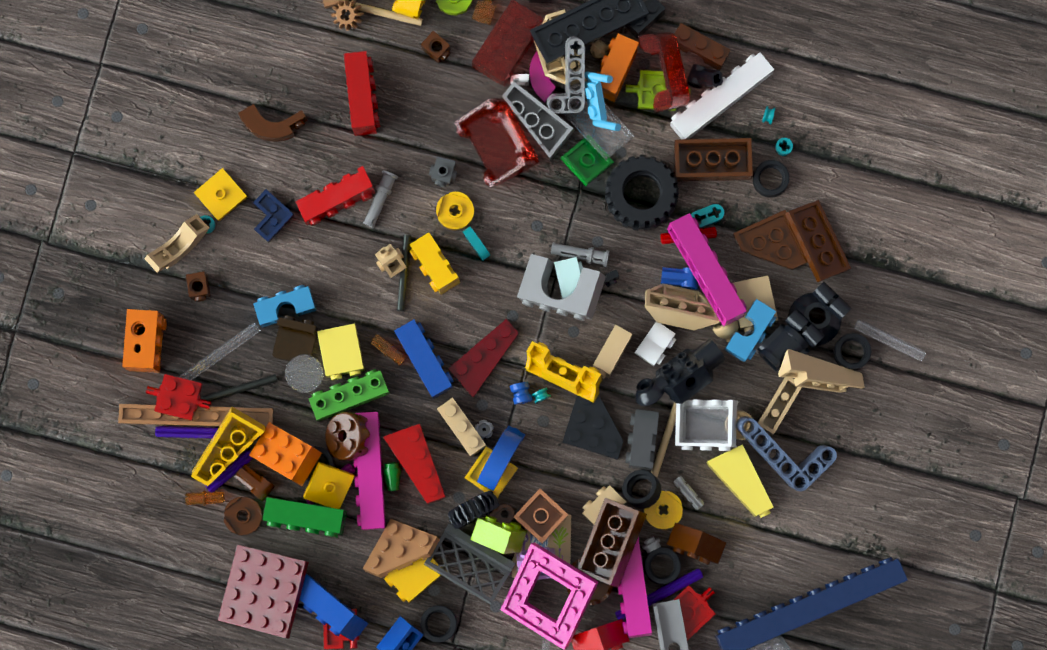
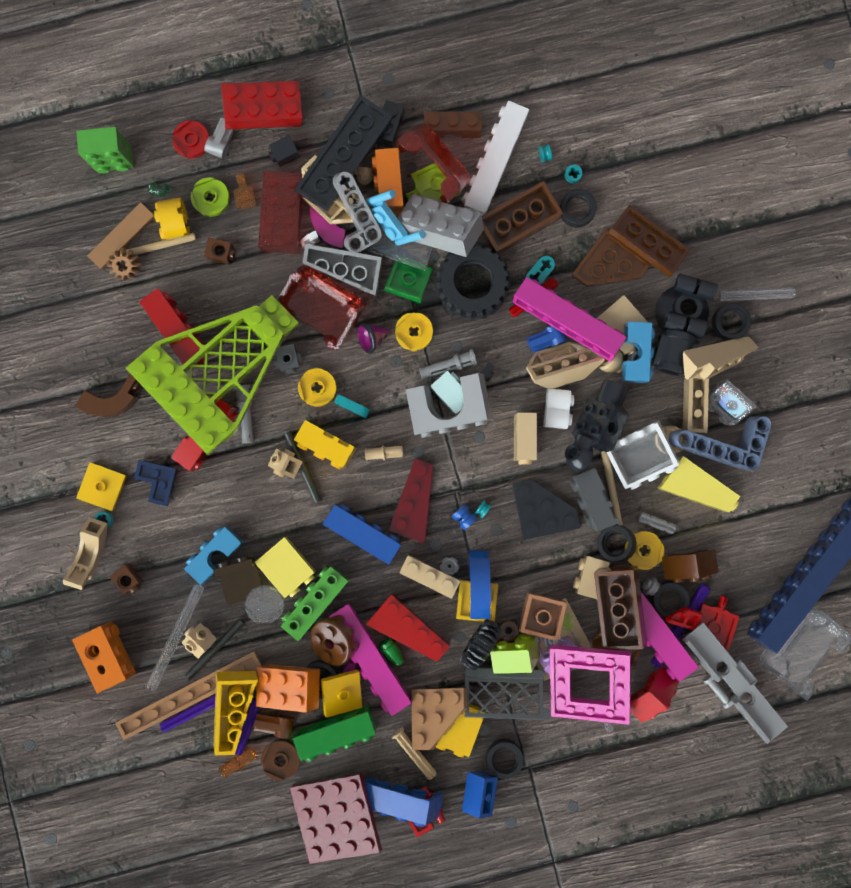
camera: 35 degrees left, 5 degrees up
(178, 397) = (164, 689): red plate -> none
(231, 372) = (198, 640): none -> tan brick
(336, 152) = (181, 395): none -> lime wing
(362, 576) = (415, 755): none -> tan axle
(388, 350) = (327, 542): clear orange axle -> none
(481, 299) = (383, 452): none -> tan axle
(526, 192) = (371, 336): none -> magenta hat
(556, 370) = (489, 480): yellow bracket -> none
(572, 199) = (414, 342): none -> yellow plate
(641, 128) = (444, 224): none -> light grey brick
(666, 587) = (685, 617): none -> red tile
(700, 76) = (468, 150): black piece -> none
(808, 420) = (729, 403): none -> clear slope

